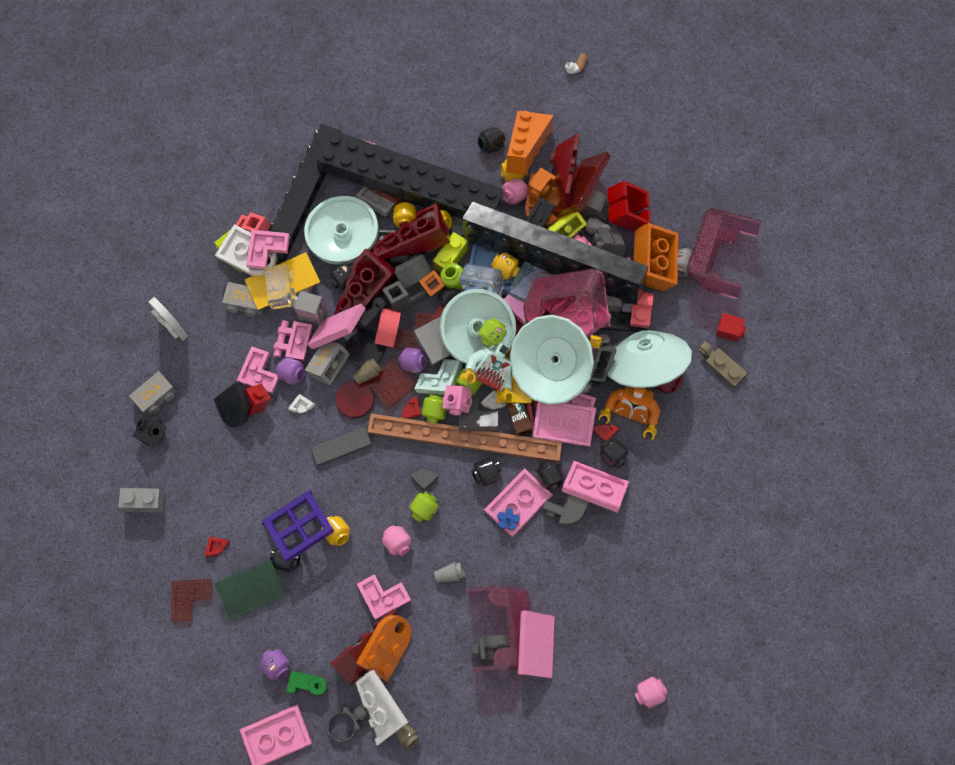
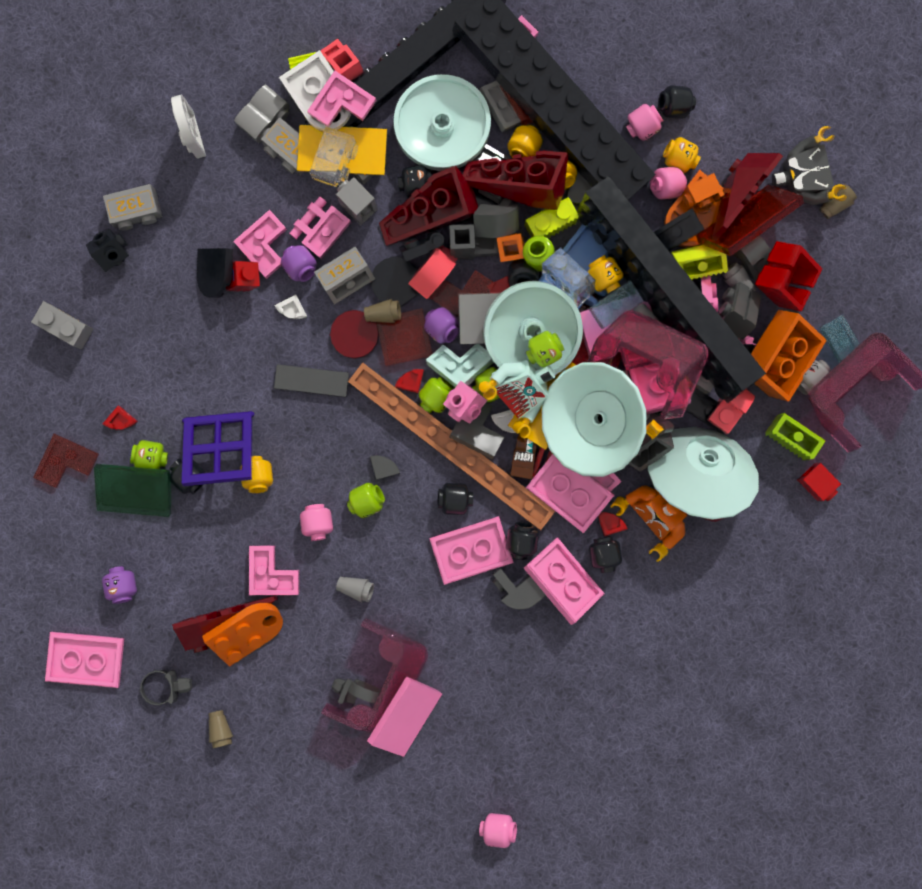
camera: 25 degrees right, 15 degrees up
(213, 287) = (262, 113): none -> light grey brick
(249, 557) = (148, 455): none -> lime head
(314, 684) = (144, 622): green leg -> none
(336, 326) = (374, 242): bright pink tile -> none
(383, 710) = (206, 699): white wing -> none
(477, 162) = (644, 122): none -> bright pink head
(507, 519) = (449, 564): blue plant -> none
(526, 140) = (720, 124): orange wedge -> none
(573, 68) = (829, 61): arm -> none
(603, 137) = (808, 171): none -> dark grey torso
(634, 145) = (834, 207): none -> dark tan cone
(685, 228) = (839, 337): none -> clear light blue plate
(695, 306) = (795, 437): none -> lime brick
(723, 364) = (785, 519): dark tan plate -> none

